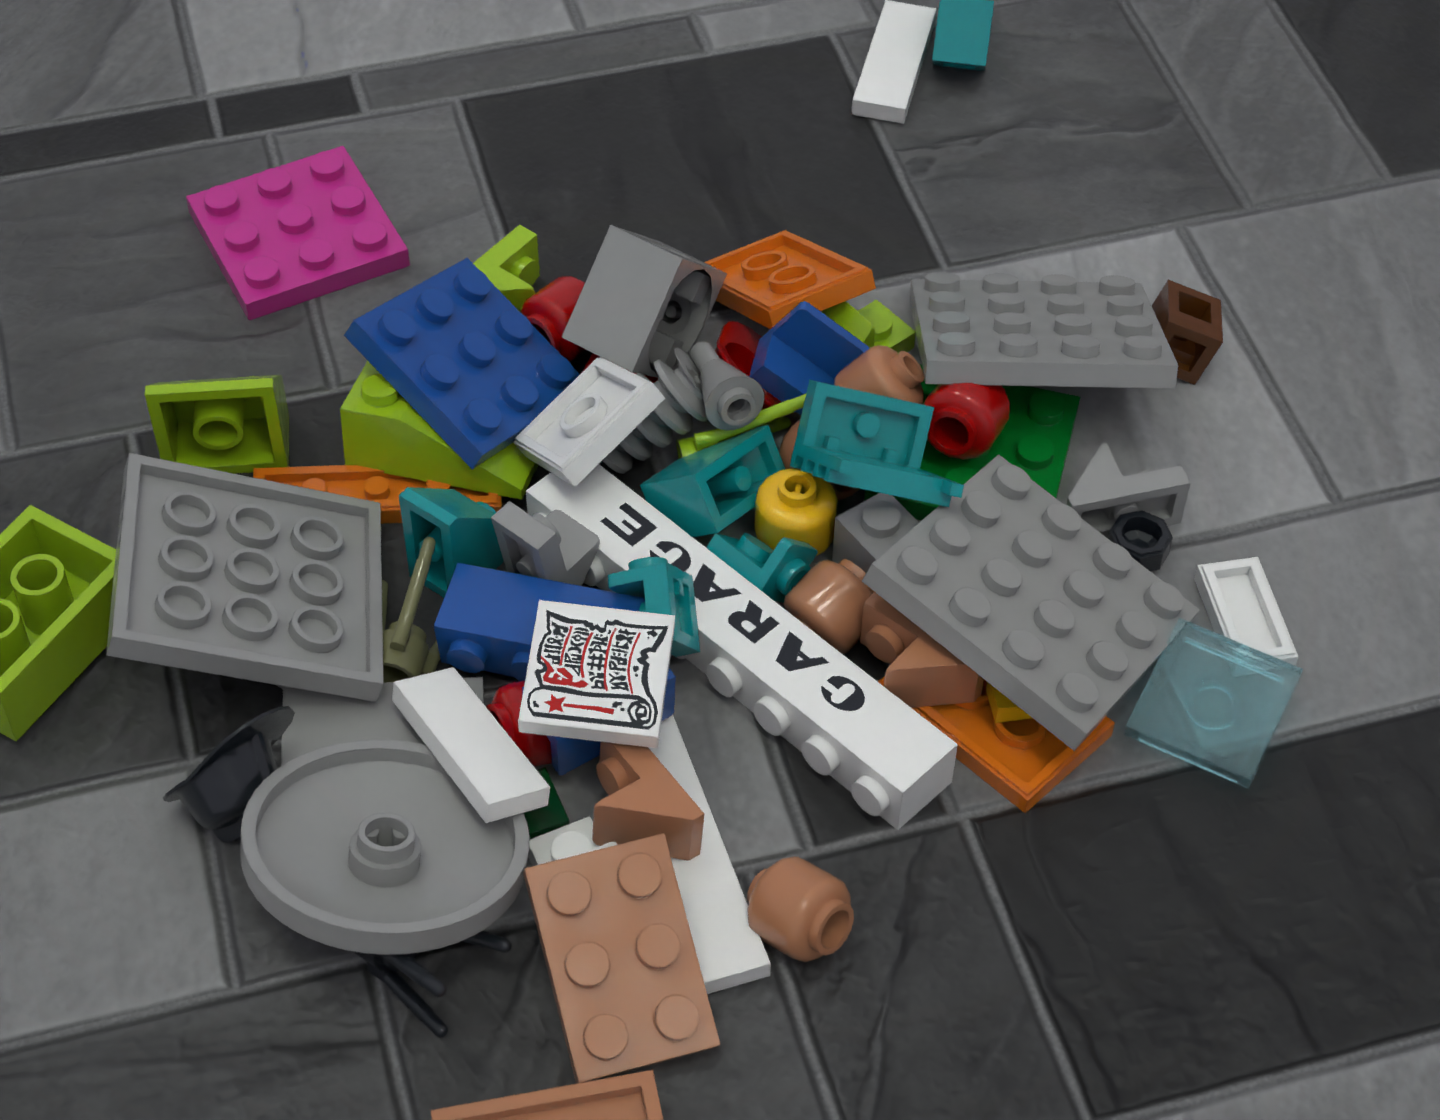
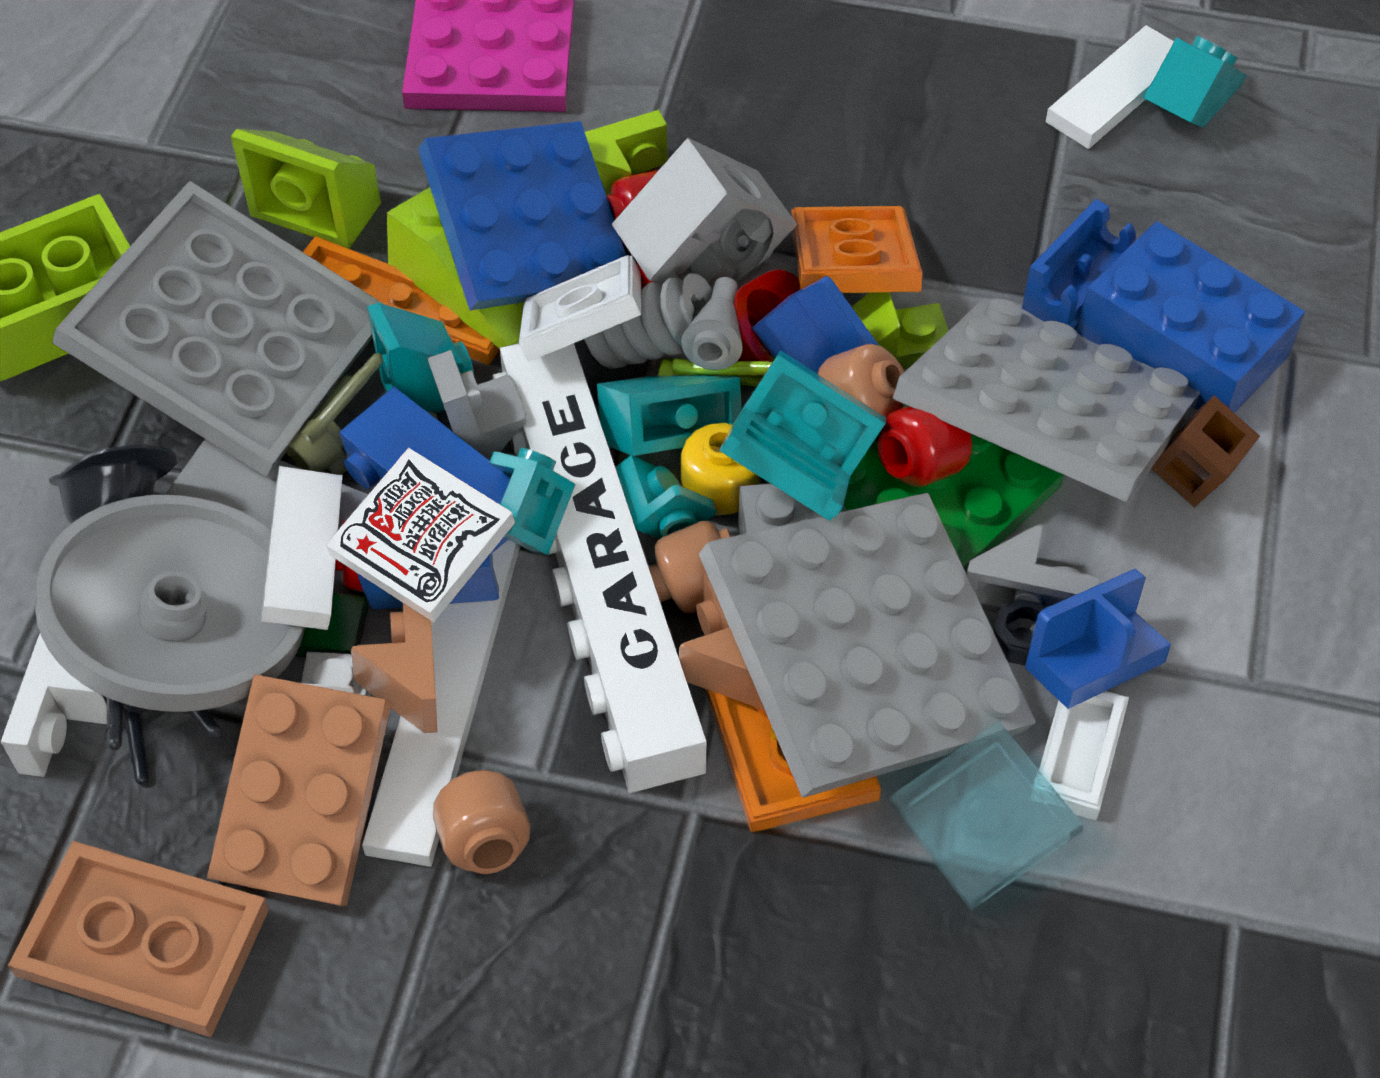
camera: 30 degrees right, 5 degrees up
(315, 985) = (41, 710): none -> white slope
(976, 224) = (1071, 263): none -> blue hinge
(1096, 224) = (1191, 315): none -> blue brick
(1208, 522) = (1094, 641): none -> blue panel

